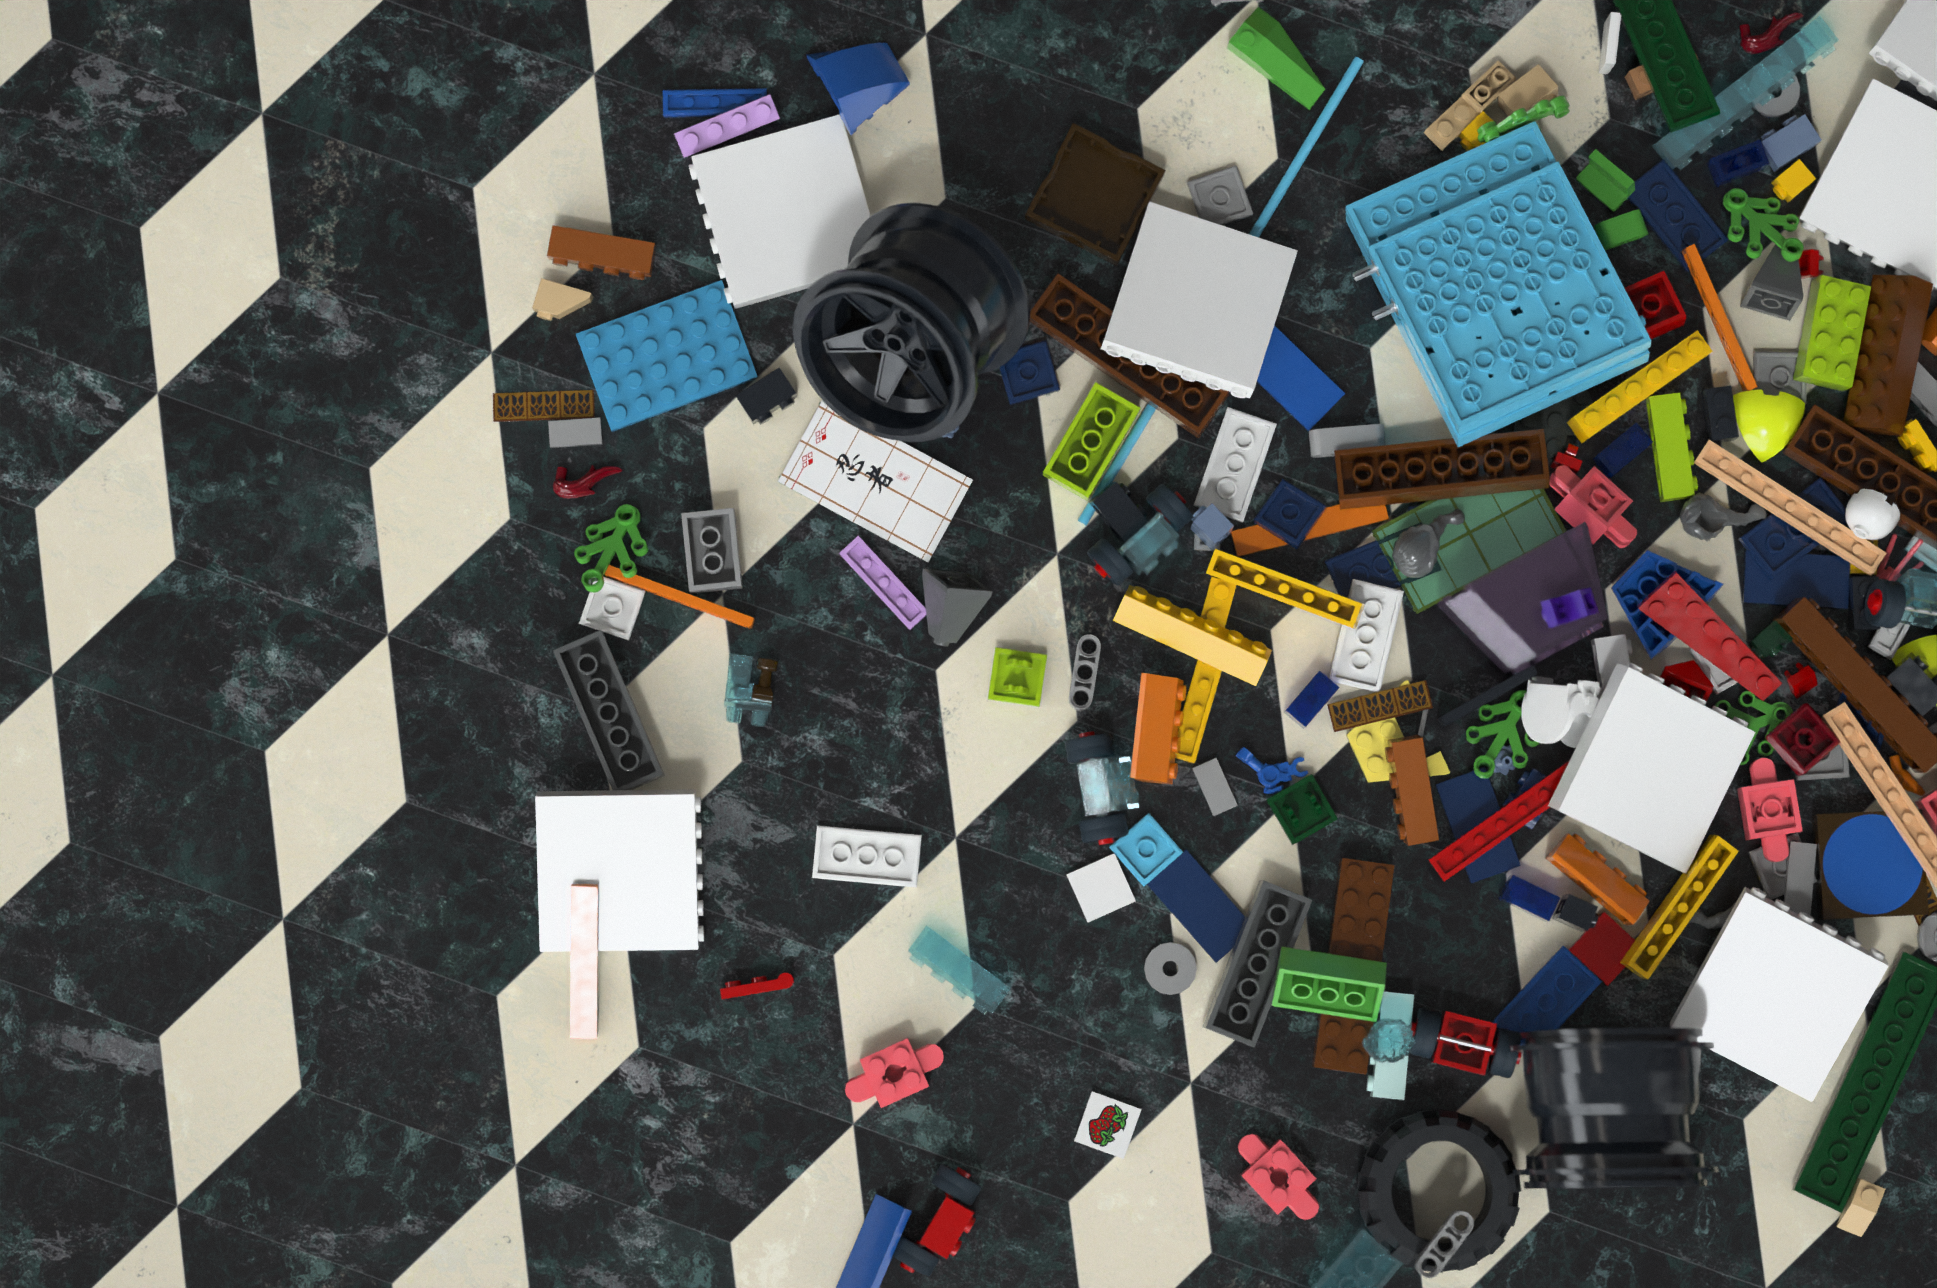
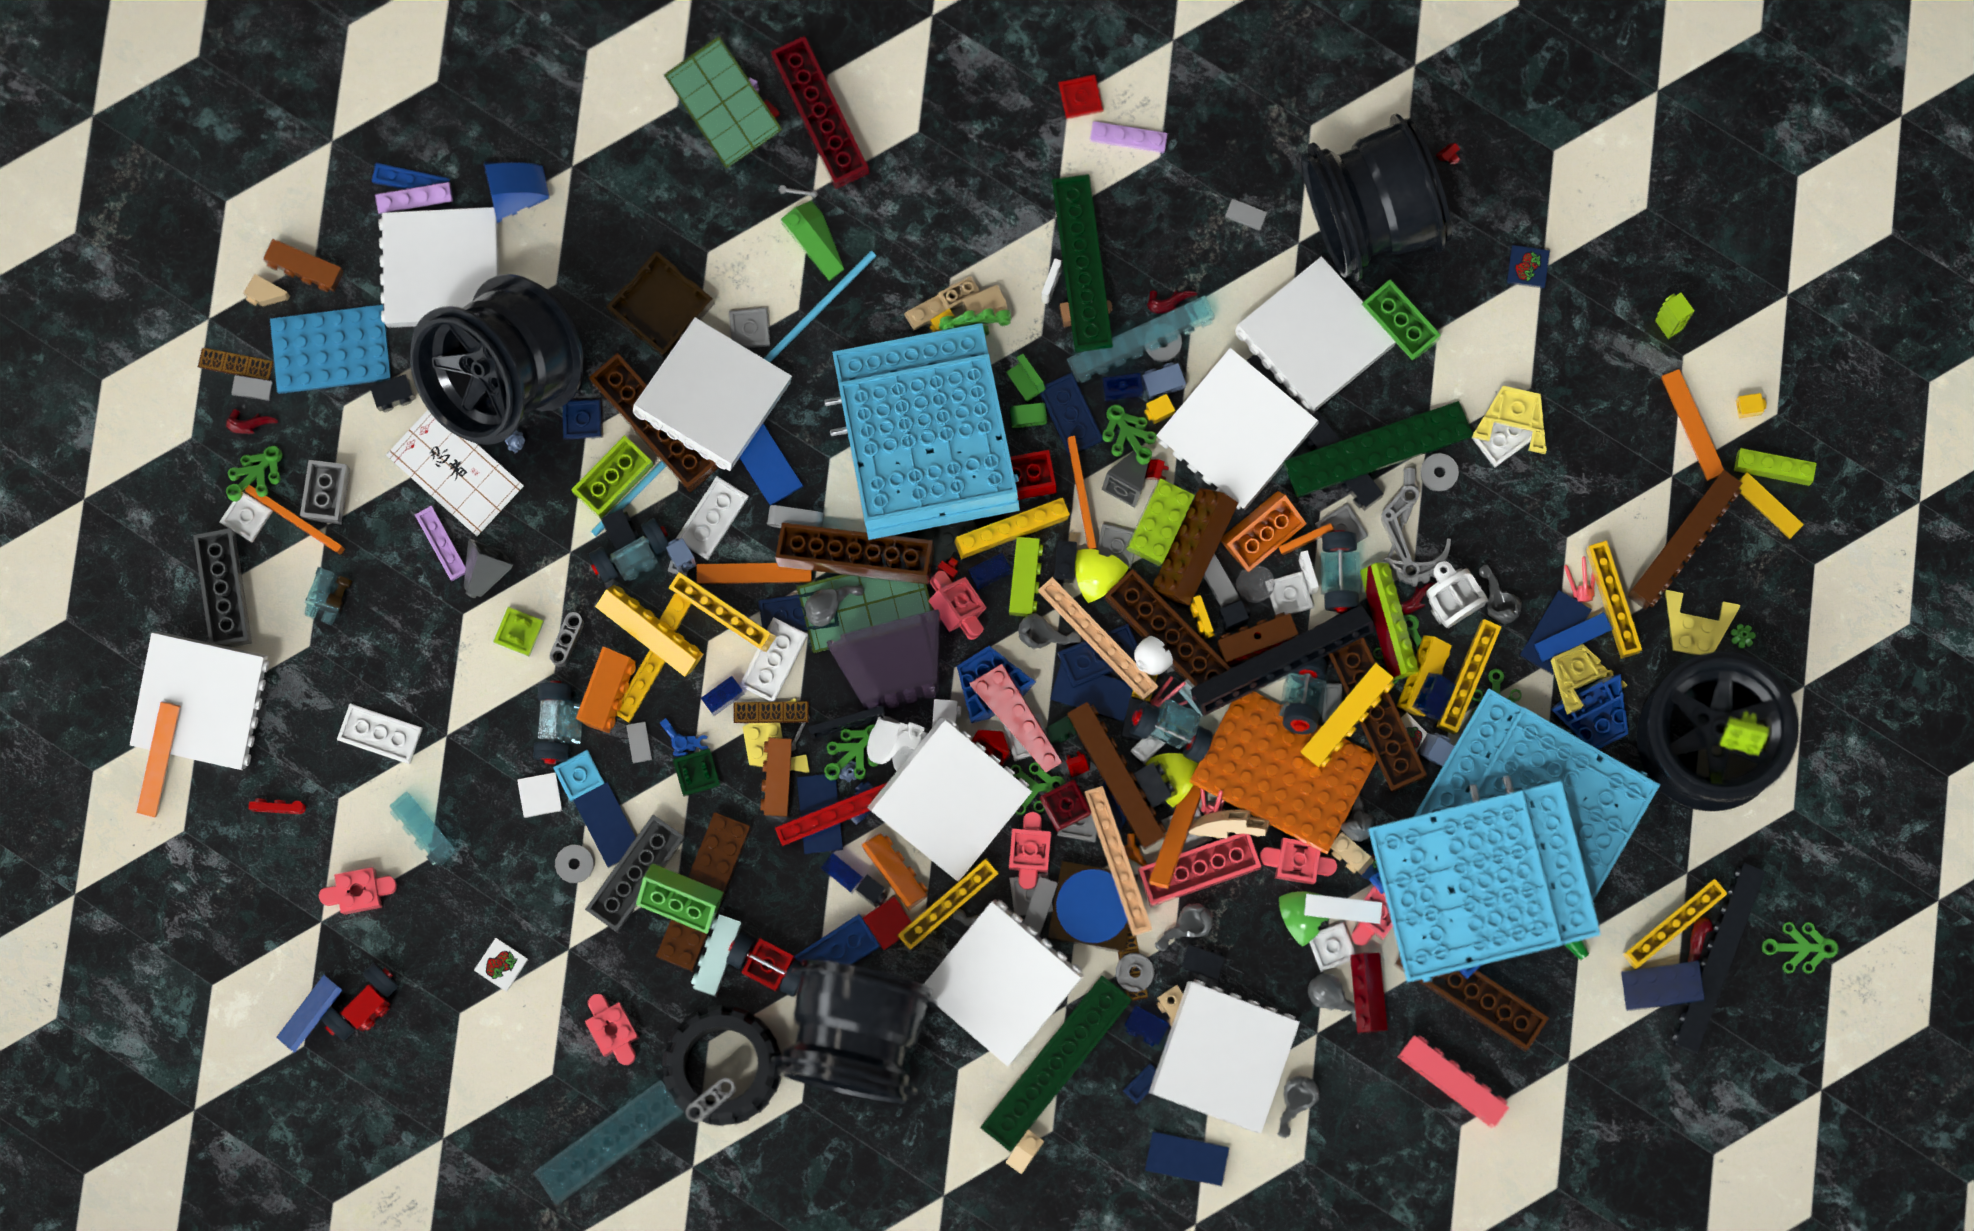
camera: 20 degrees right, 5 degrees down
(1289, 514) = (741, 561): dark blue tile -> none
(1389, 1040) = (711, 948): clear light blue hair -> none
(1569, 607) = (908, 666): dark purple brick -> none

